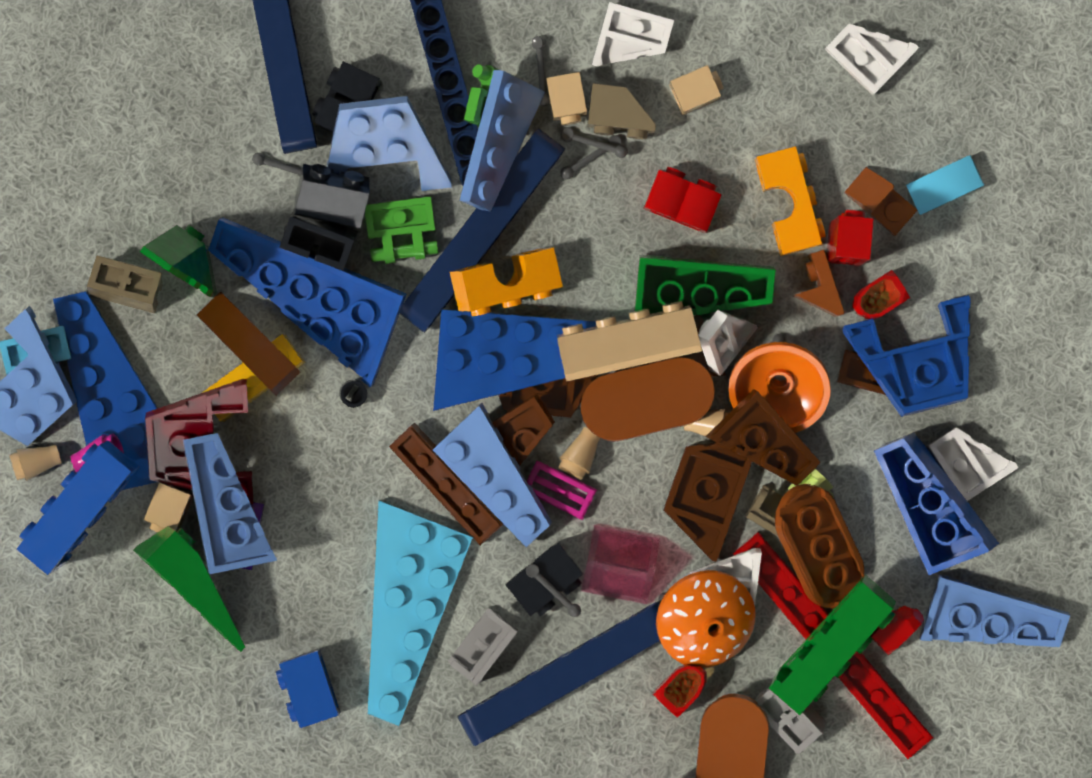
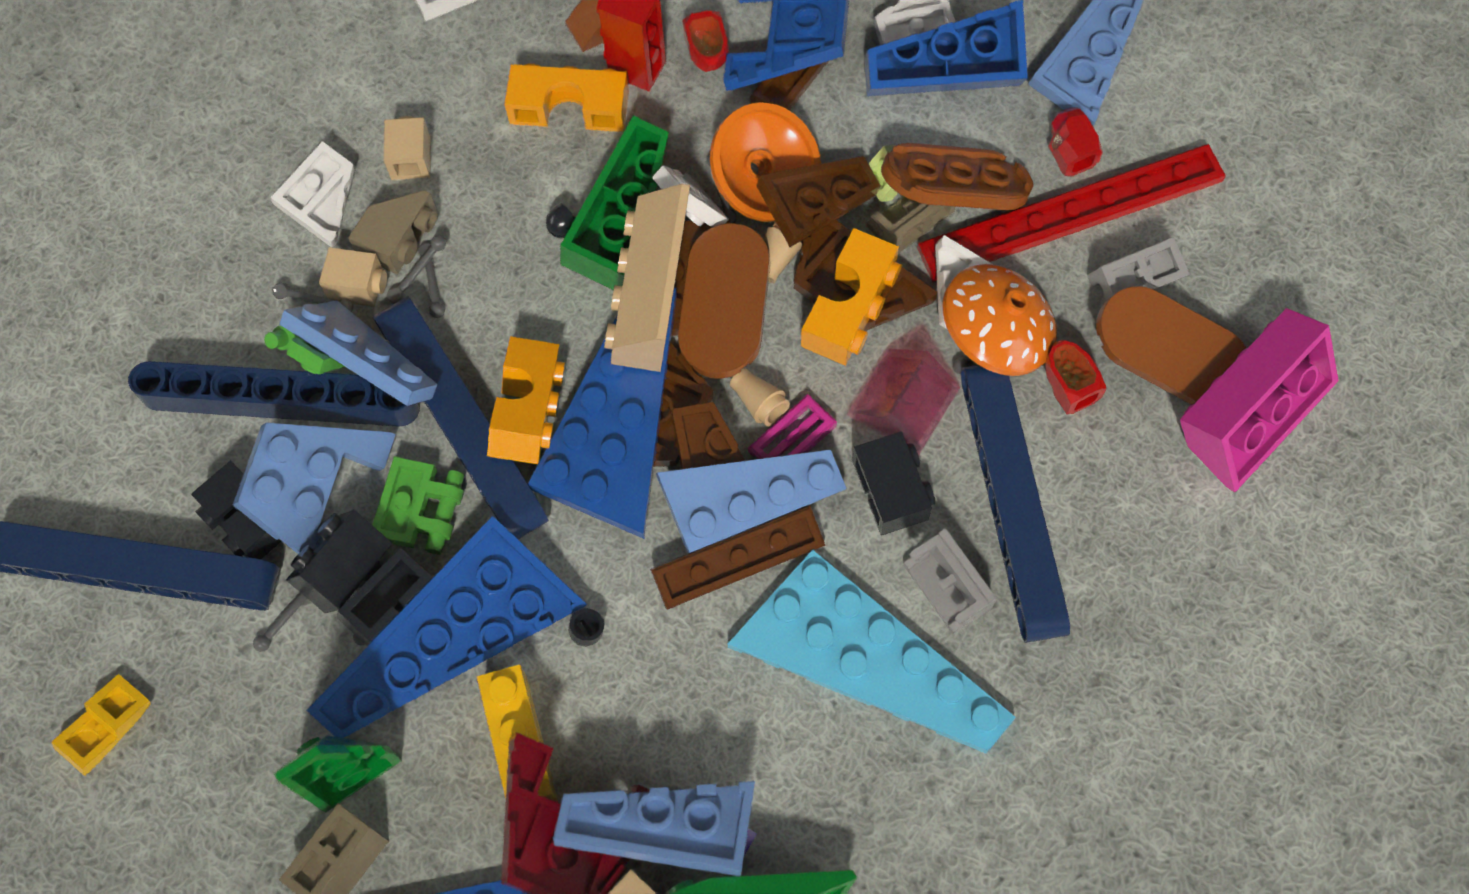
camera: 65 degrees left, 20 degrees down
(159, 72) = (102, 726): none -> yellow slope
(248, 343) = (470, 720): reddish brown tile -> none
(308, 689) = (933, 812): blue brick -> none
(573, 609) = (878, 483): dark grey hinge -> none
(674, 241) = (559, 221): none -> black hinge
(683, 200) = (519, 199): red brick -> none
(710, 504) = (838, 327): none -> light orange arch
(825, 296) = (680, 91): dark orange slope -> none
(832, 644) = (1074, 192): green wedge -> none

